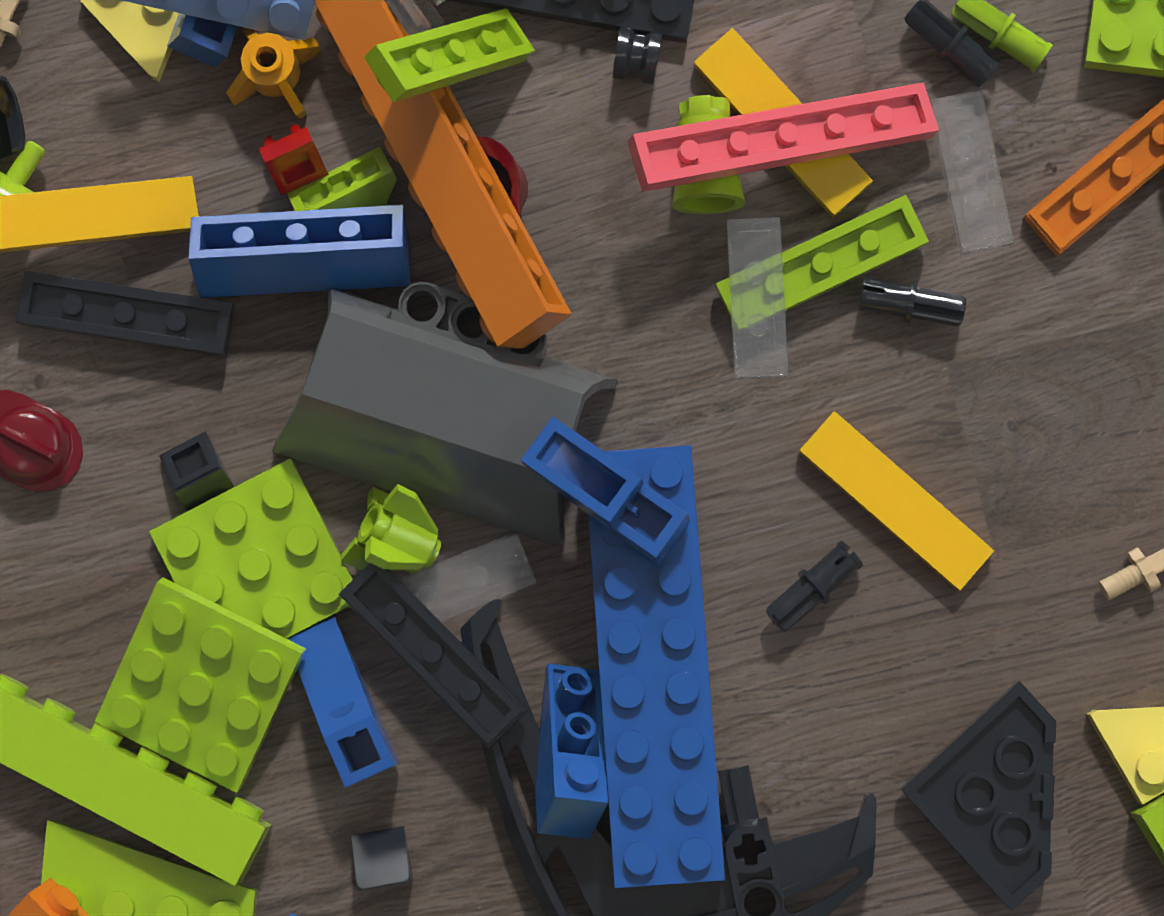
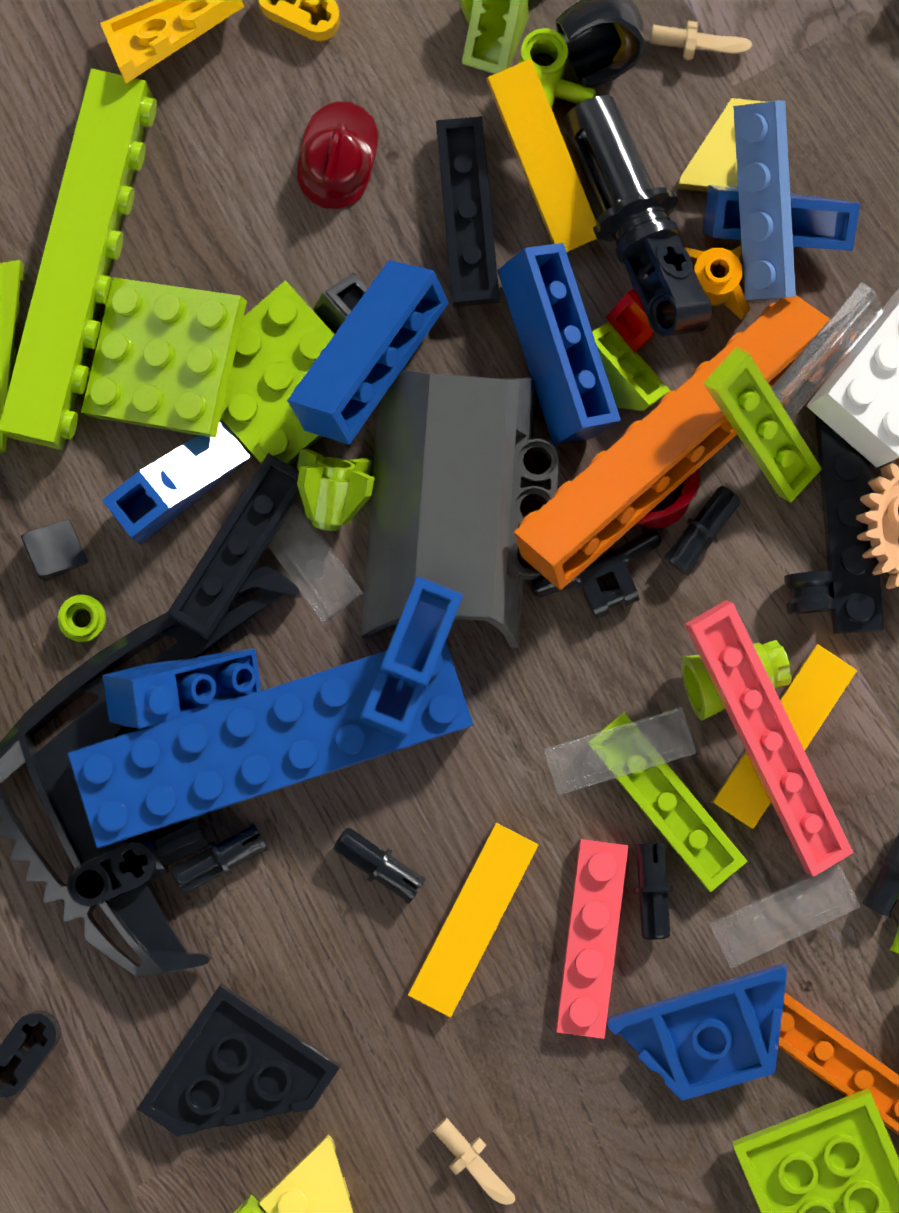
camera: 70 degrees right, 0 degrees up
(186, 130) = (638, 219): none -> black piece
(256, 456) = (368, 351): none -> blue brick
(453, 859) = (67, 616): none -> lime plate
(541, 150) = (703, 530): none -> black axle
(553, 252) = (611, 562): none -> black piece
(765, 758) = (219, 859): none -> black axle
(946, 380) = (591, 938): none -> coral plate
(1077, 280) = (710, 1034): none -> blue wing

